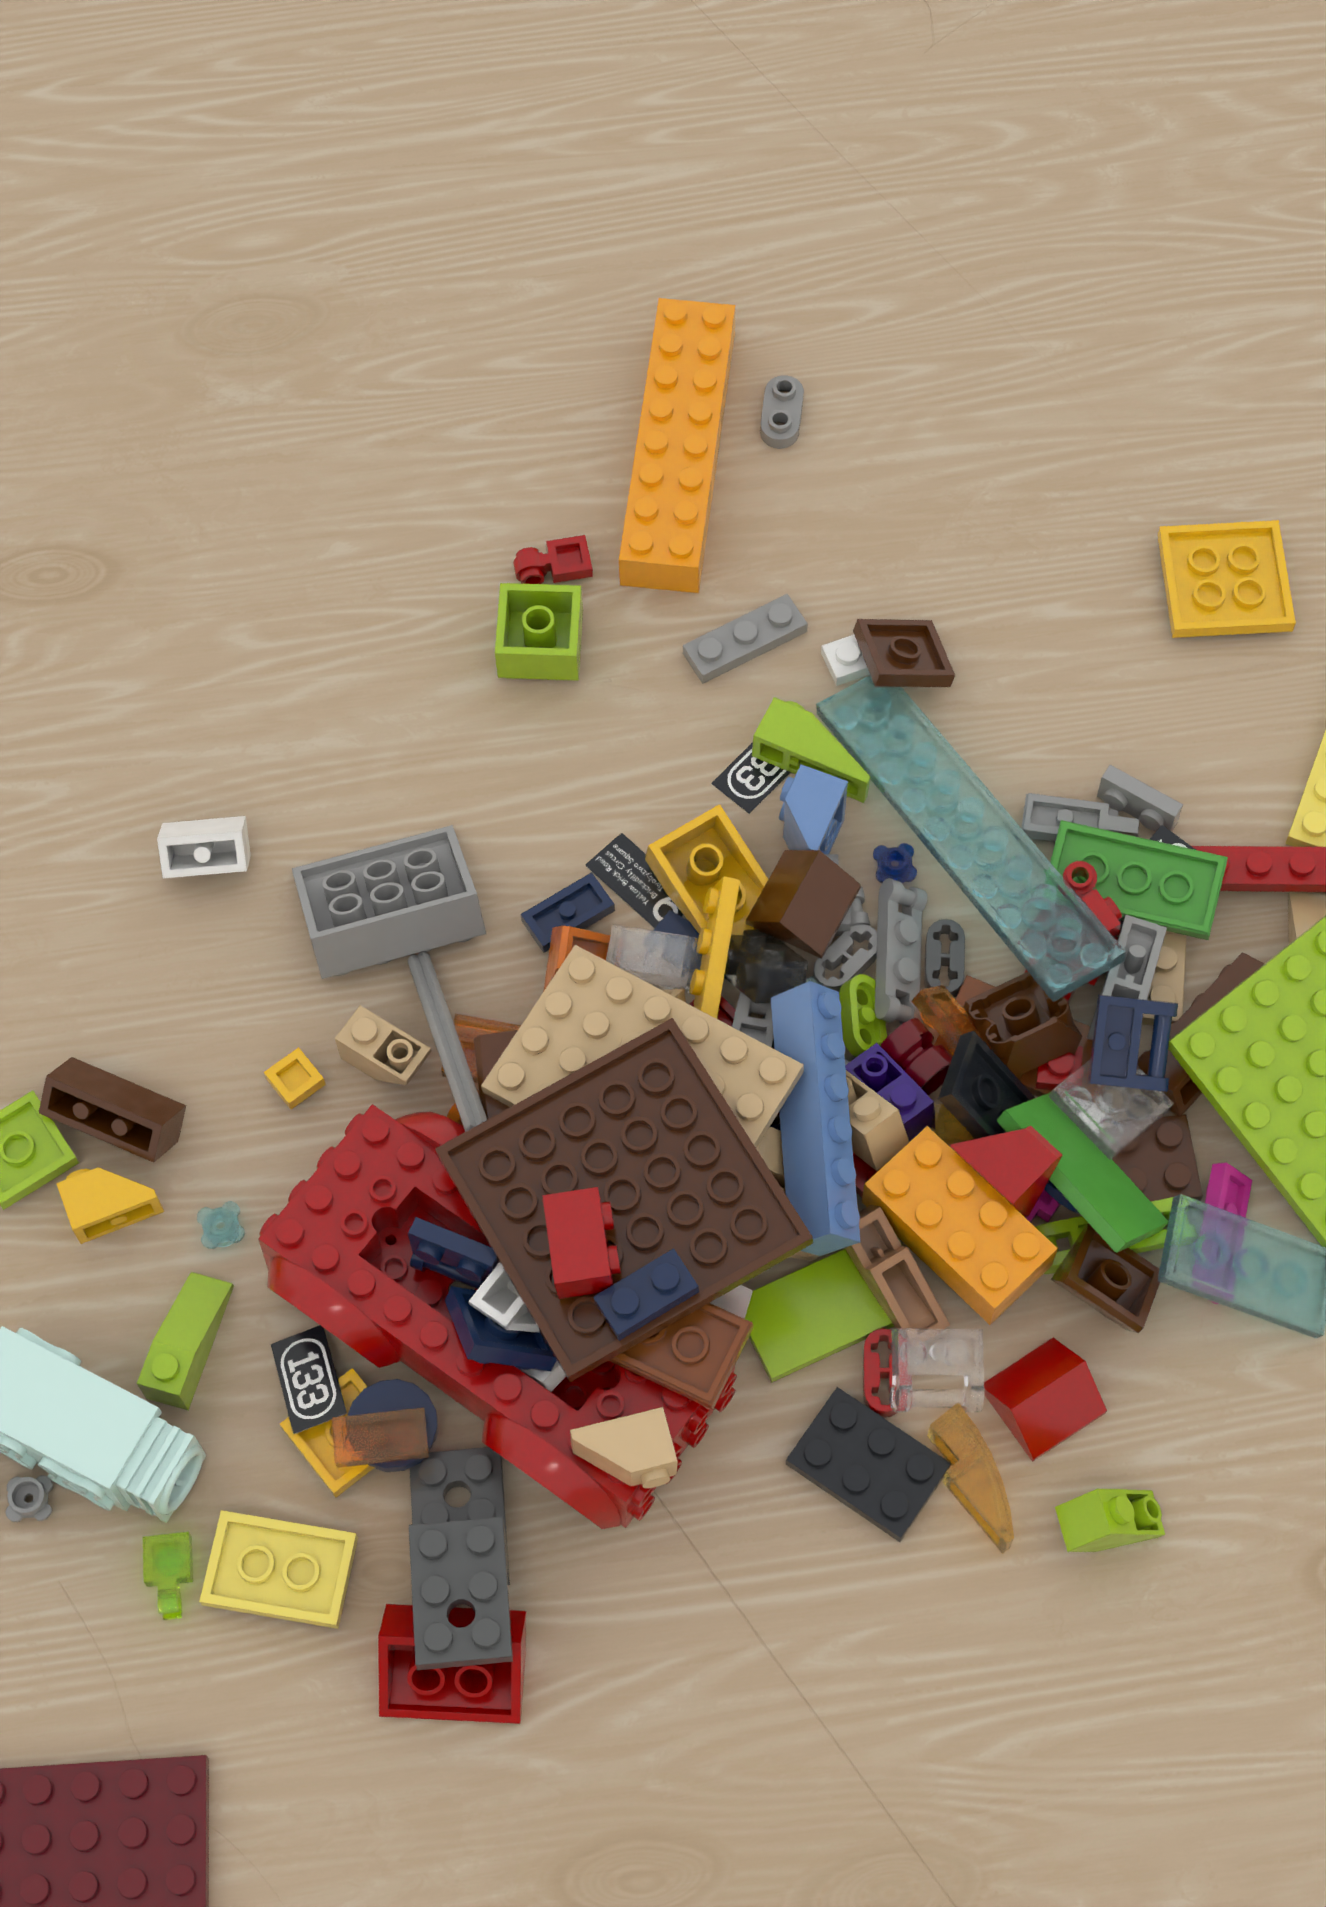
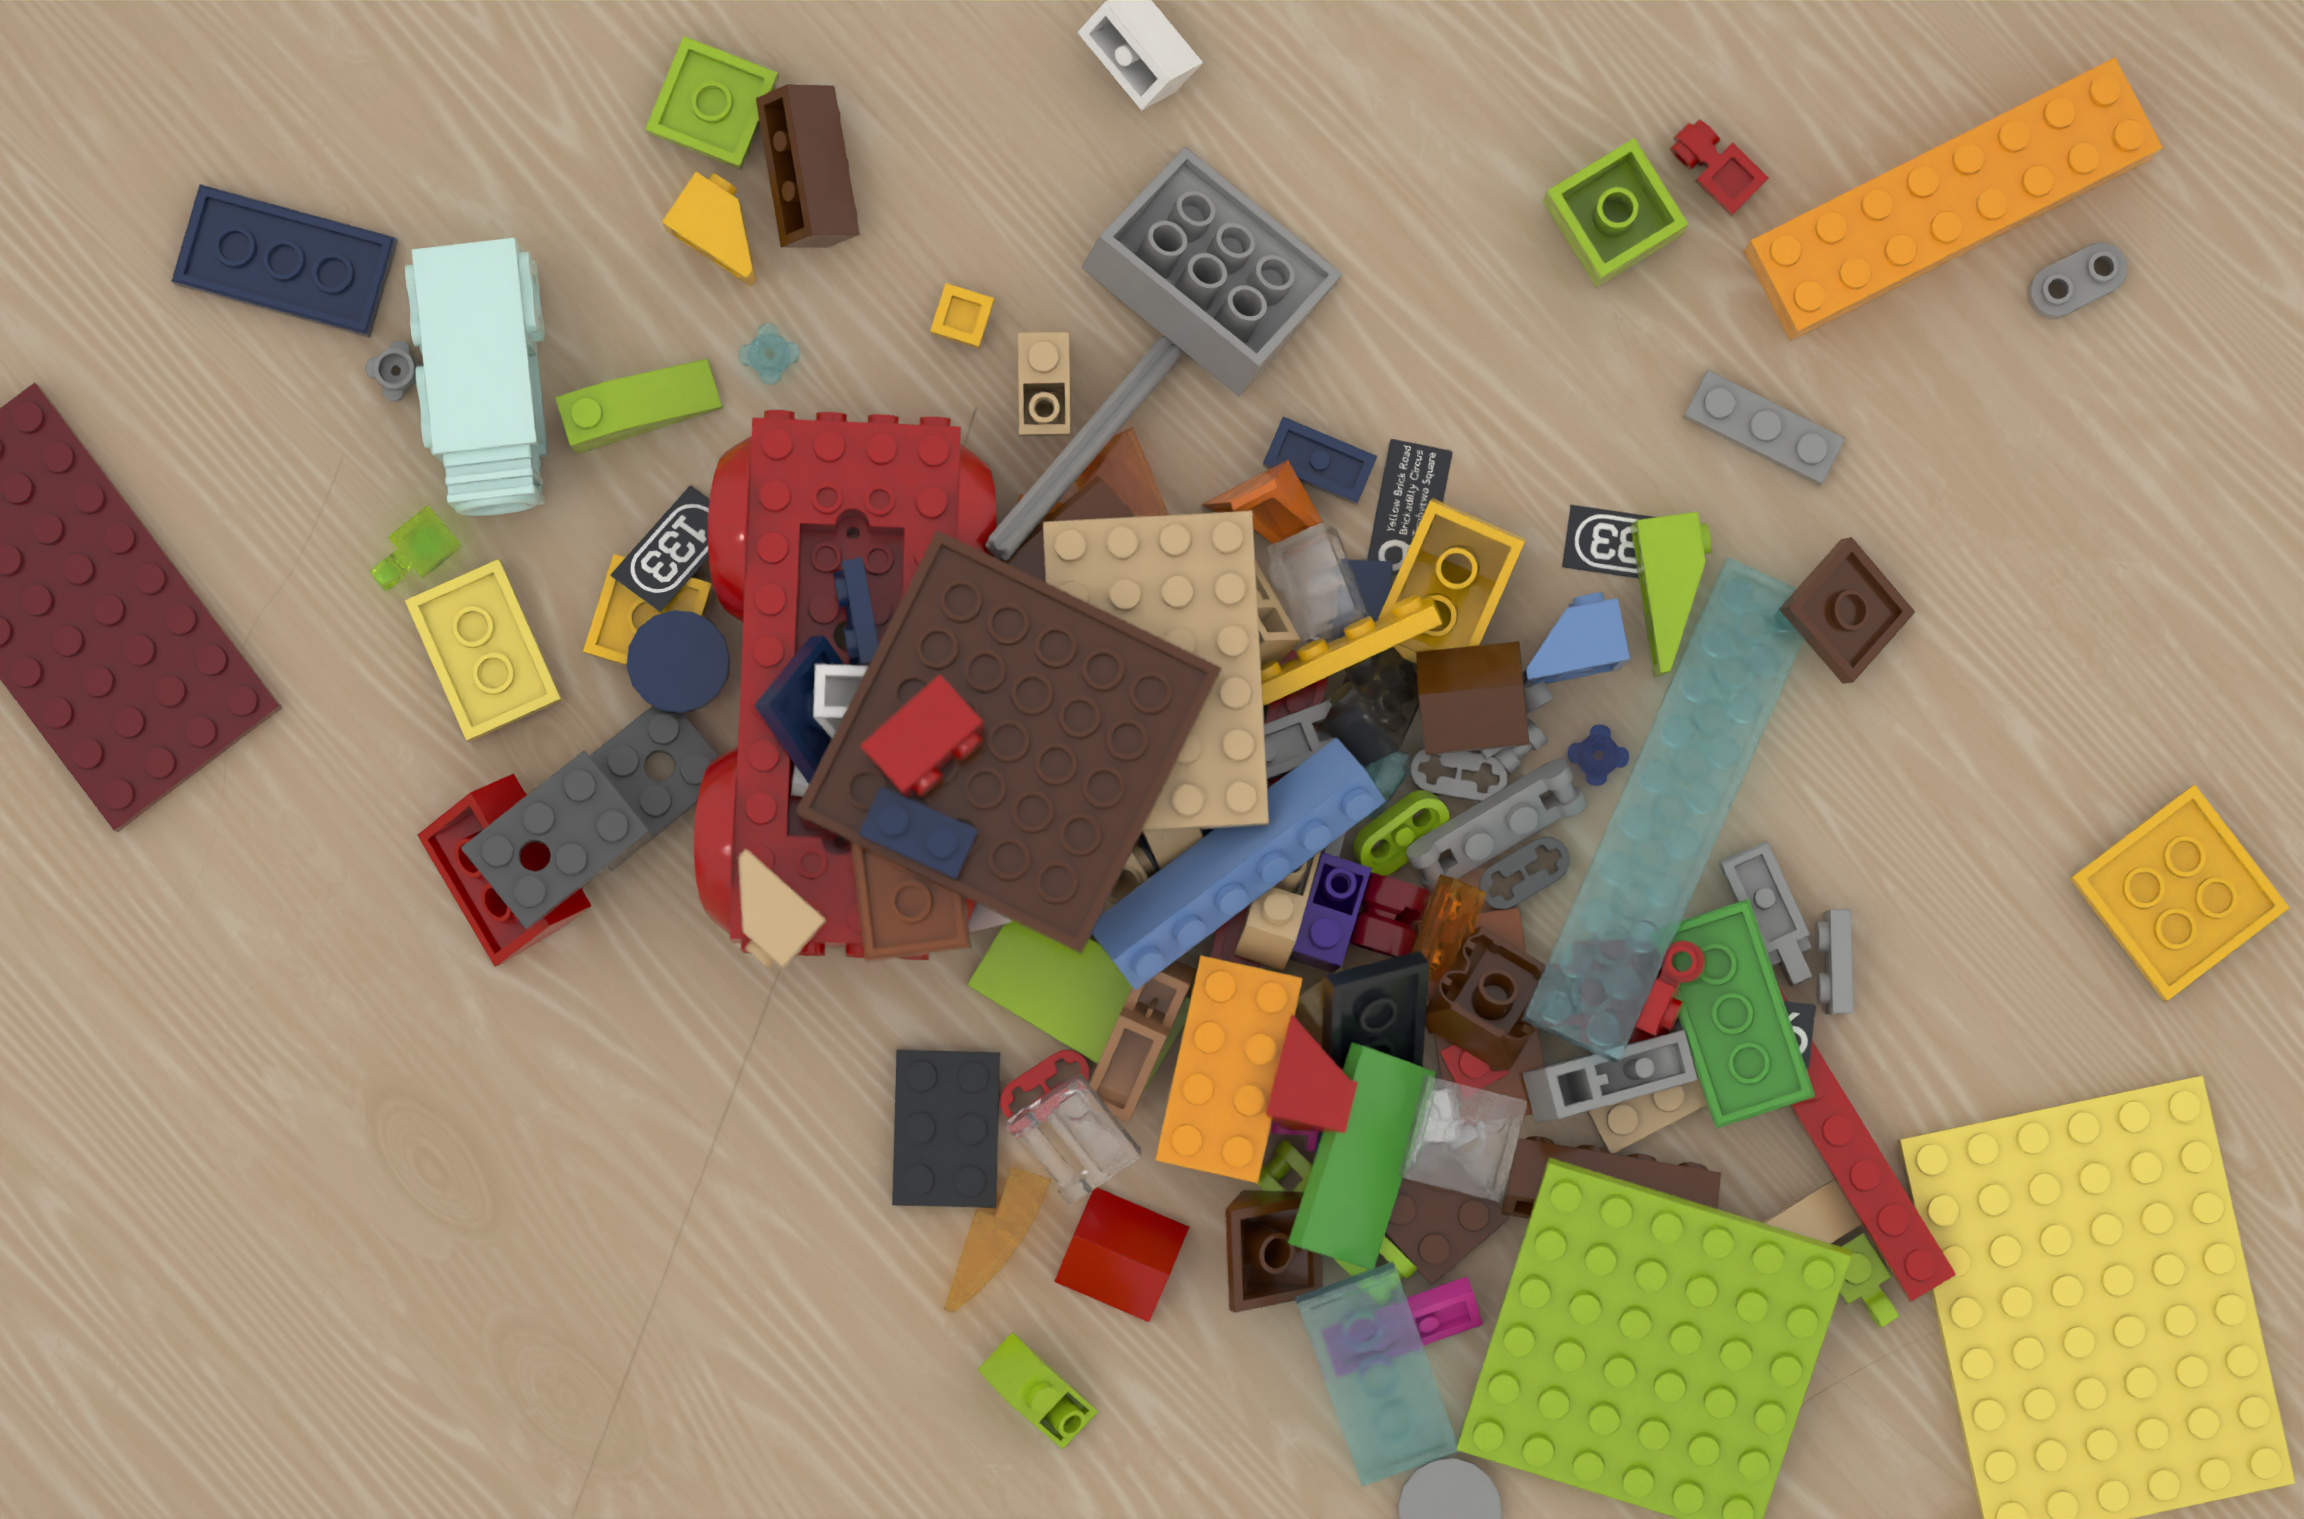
camera: 55 degrees right, 20 degrees up
(380, 1437) = (652, 663): clear orange plate -> none
(844, 660) = (1806, 548): white plate -> none
(1118, 1042) = (1515, 1111): dark blue plate -> none

